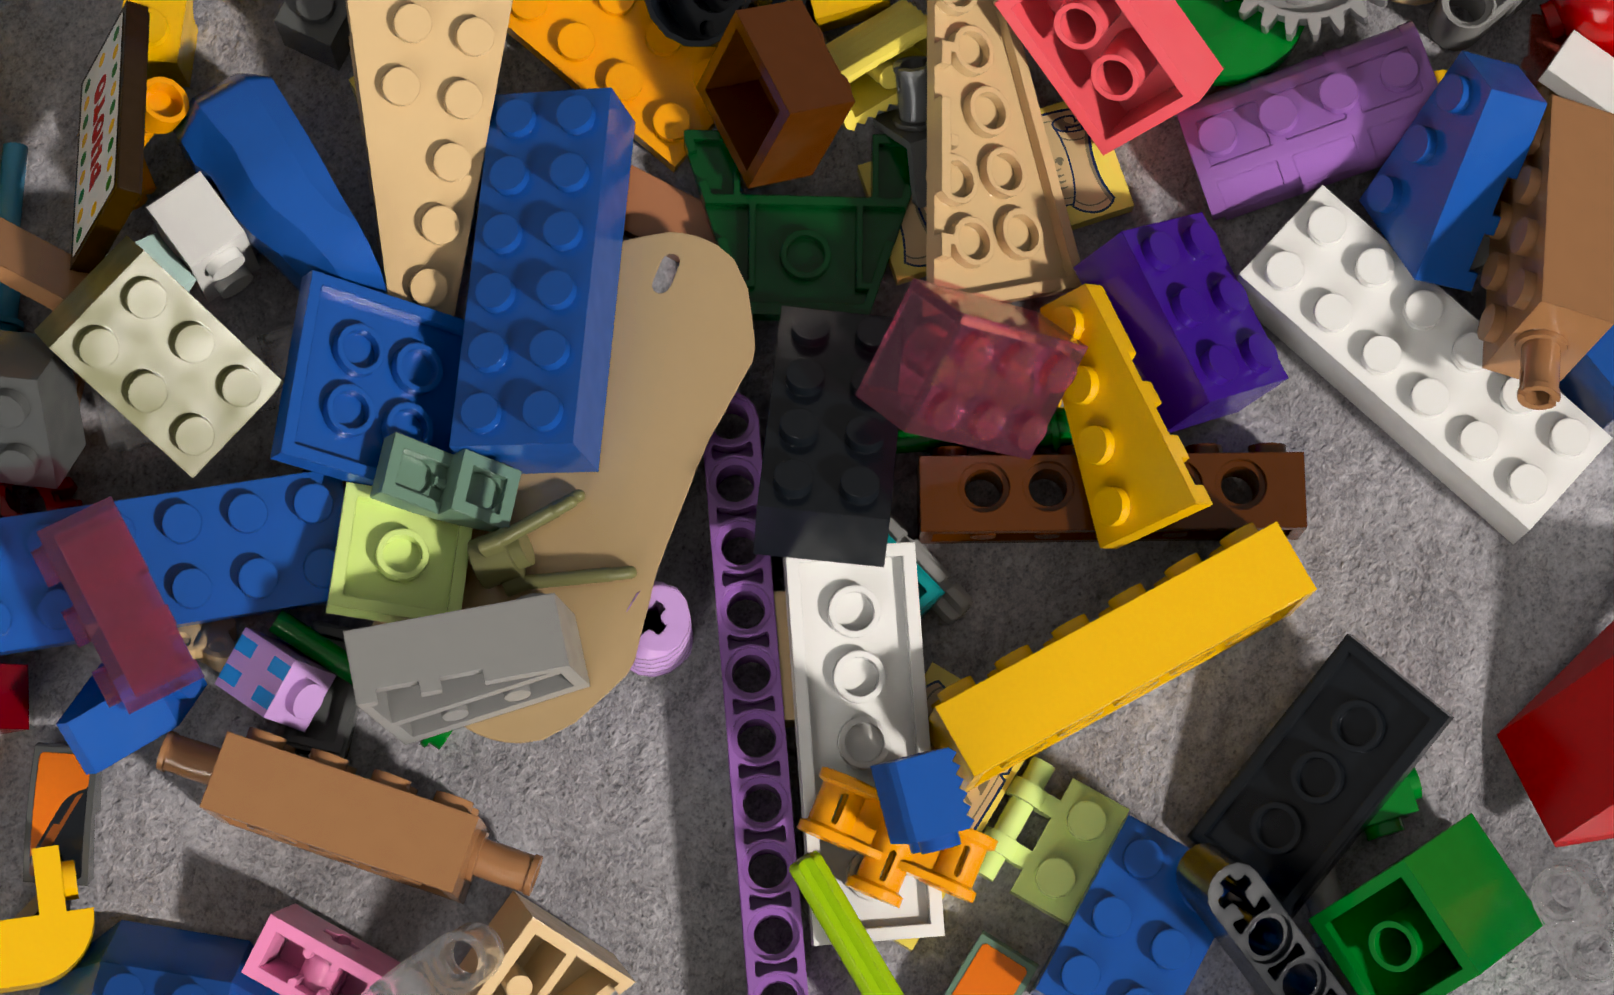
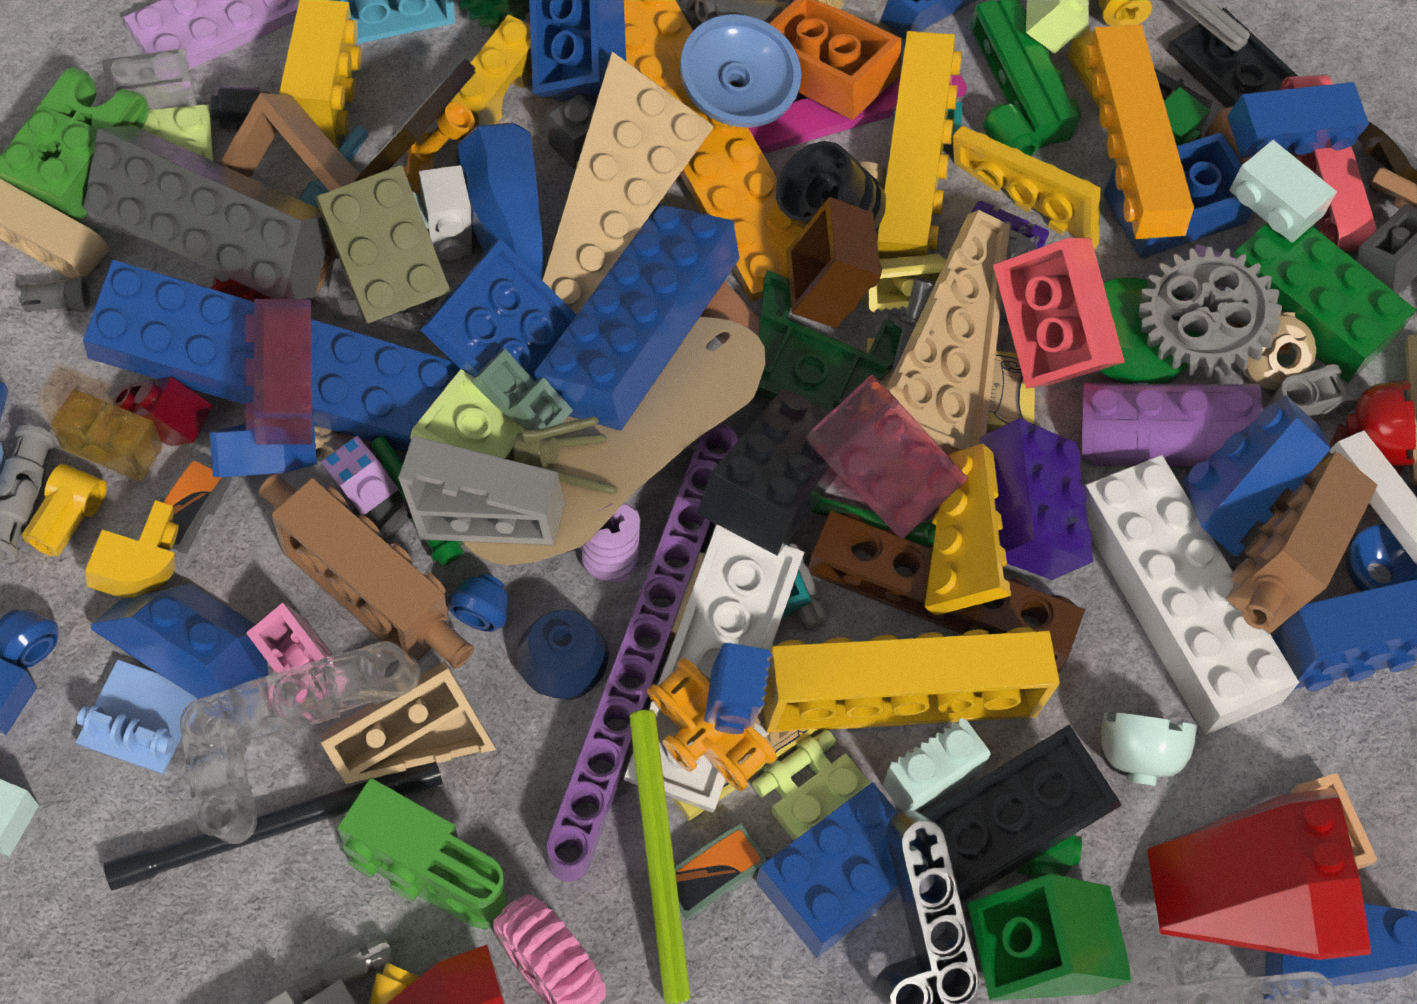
camera: 20 degrees right, 15 degrees down
(517, 782) = (480, 603): none -> blue cone
(655, 806) = (562, 655): none -> dark blue cone
(1195, 751) = (936, 767): none -> light aqua brick
(1449, 602) = (1146, 746): none -> light aqua cylinder

